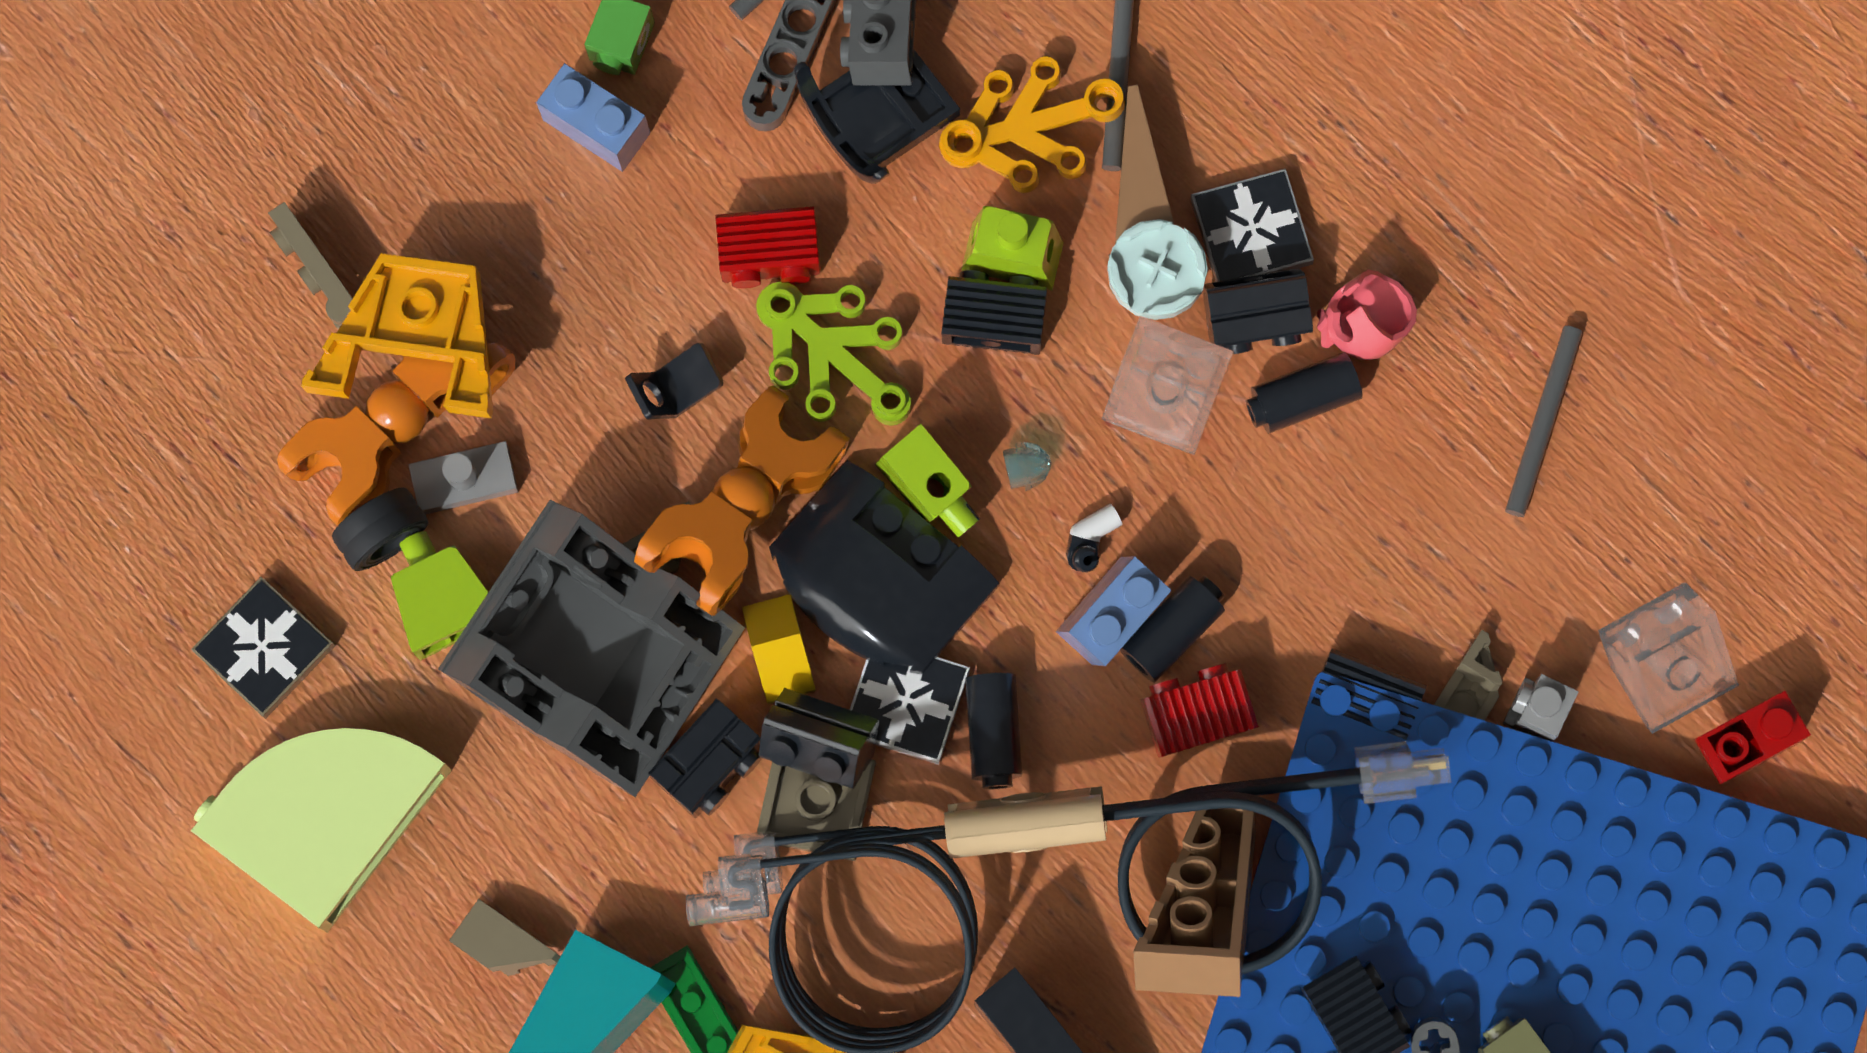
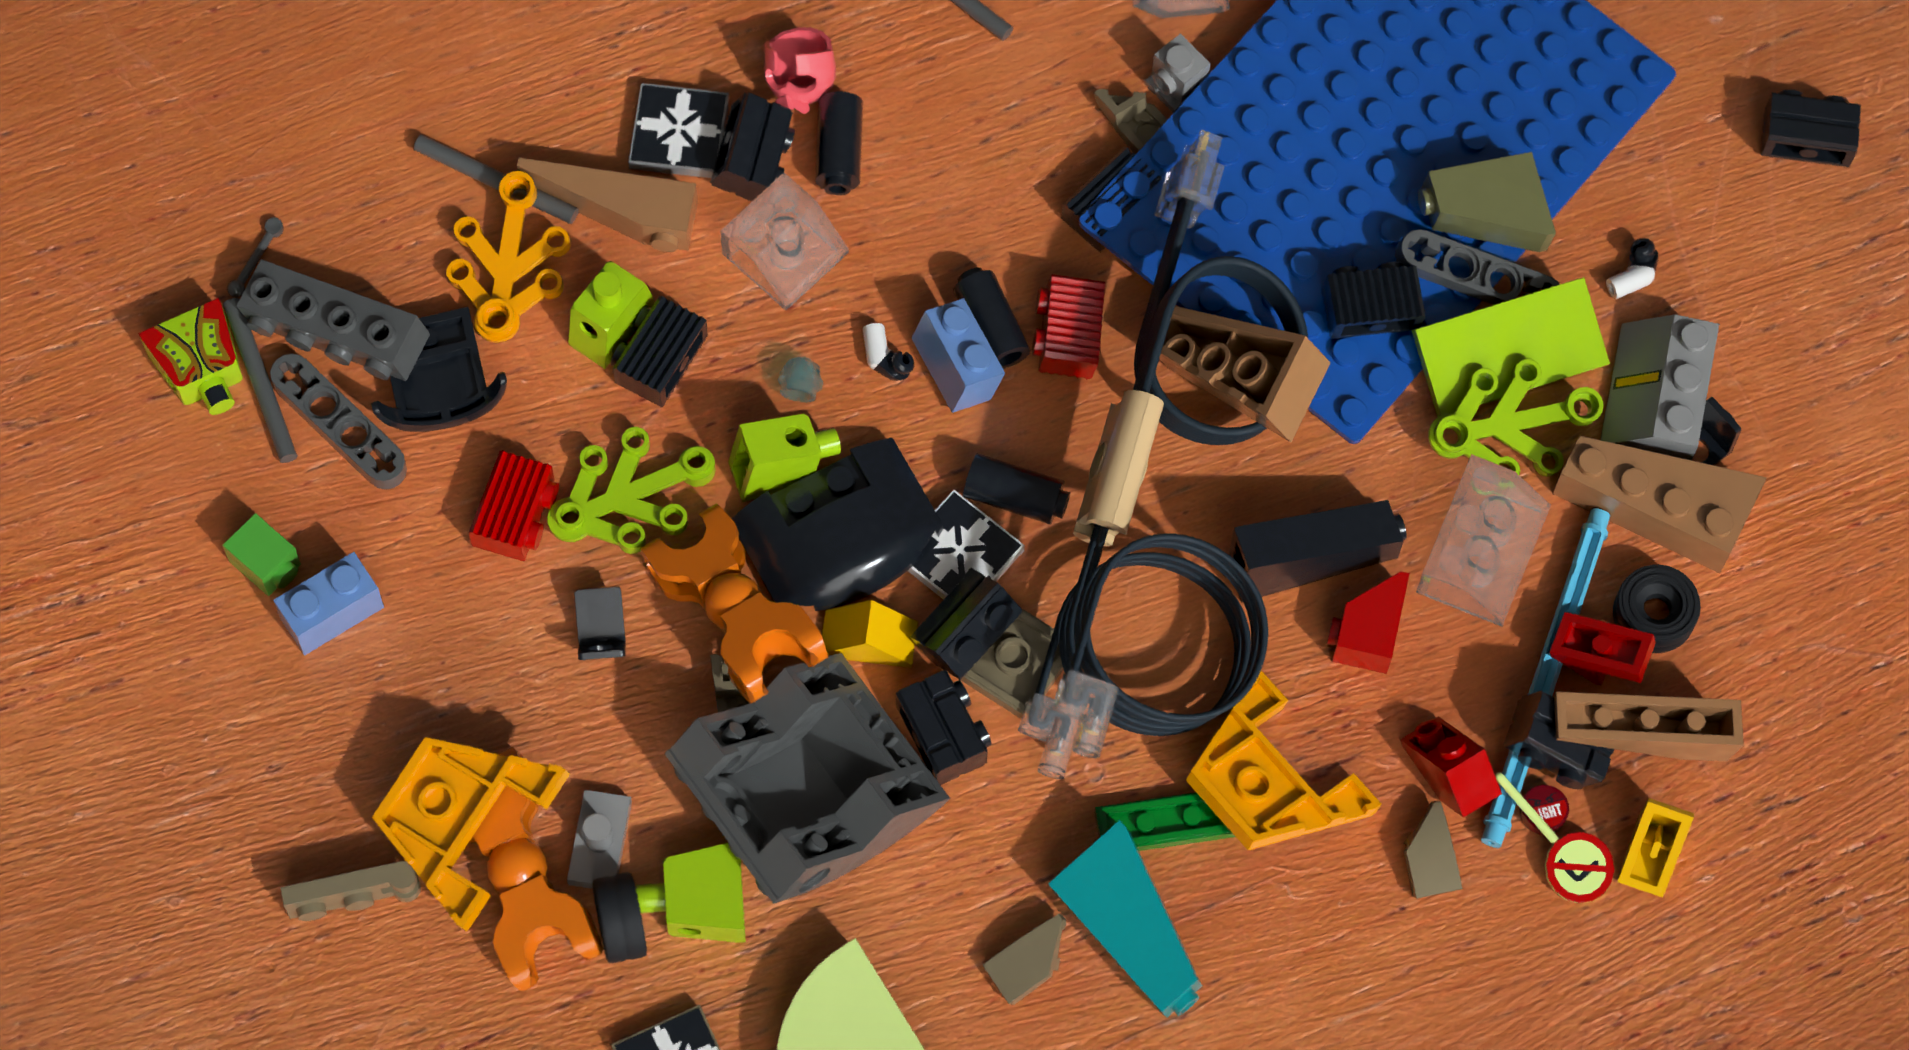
camera: 75 degrees left, 10 degrees down
(1157, 269) = (687, 202): light aqua tile -> none

